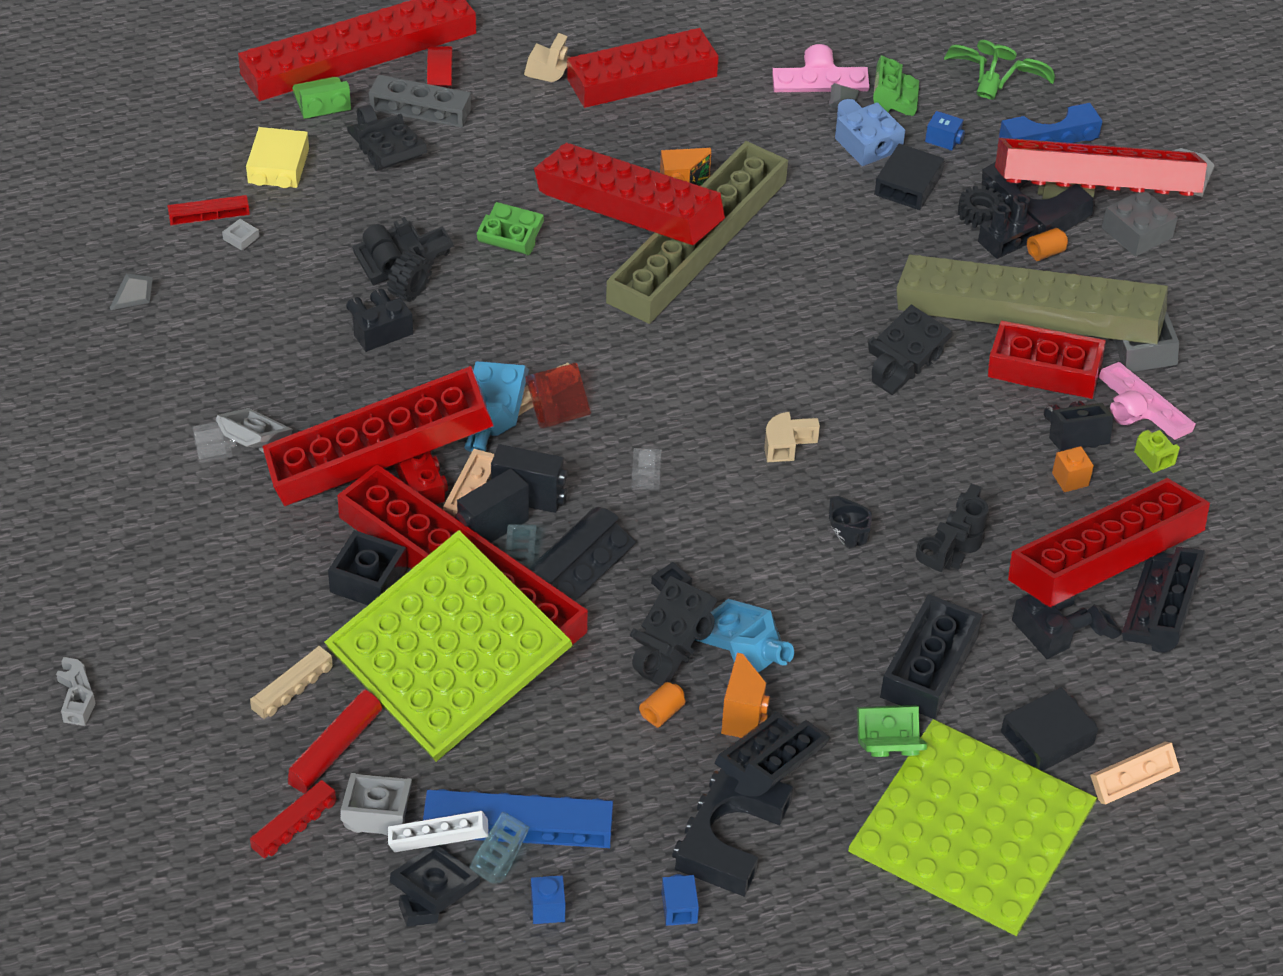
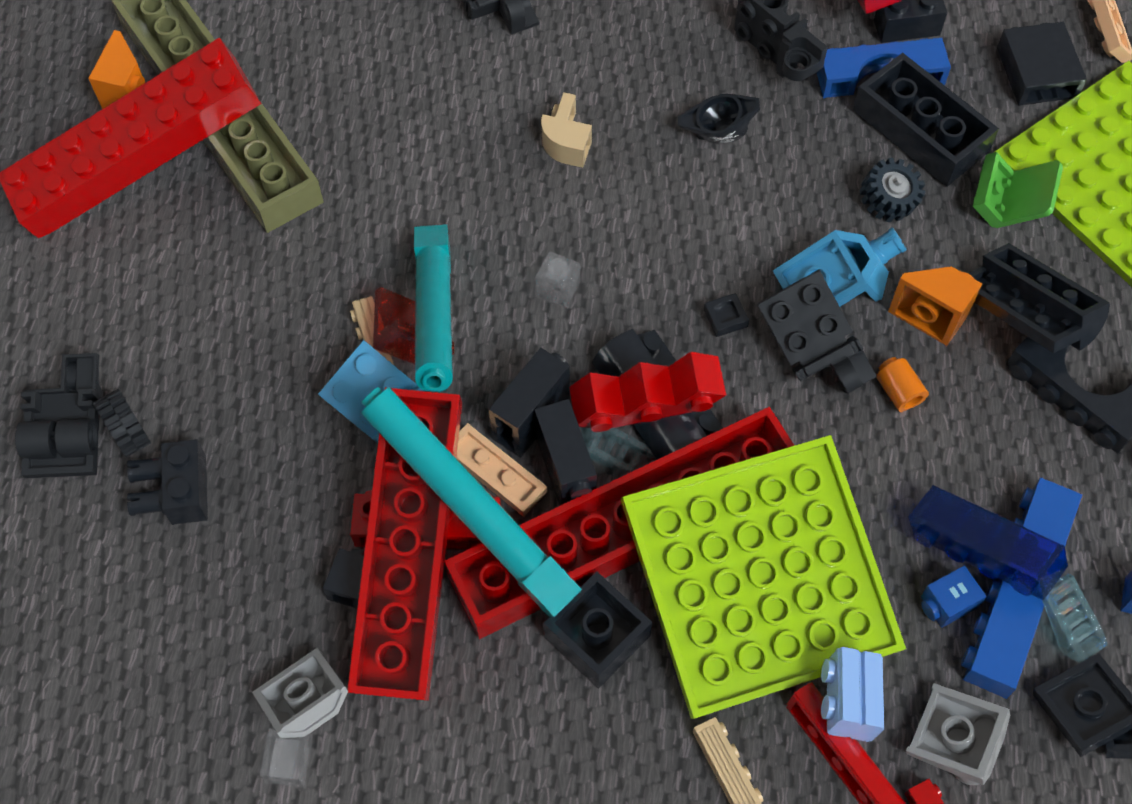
camera: 65 degrees left, 15 degrees up
(375, 718) = (853, 694): none -> light blue brick
(380, 509) = (534, 570): none -> teal brick
(438, 831) = (1038, 677): white piece -> none
(488, 773) = (952, 597): none -> blue brick
(510, 228) = (97, 285): bright green brick -> none
(534, 773) = (988, 542): none -> clear blue brick
(558, 530) = (648, 392): none -> red brick
(628, 389) = (433, 308): none -> teal brick
(848, 653) = (892, 189): none -> black wheel
(998, 644) = (848, 65): none -> blue arch

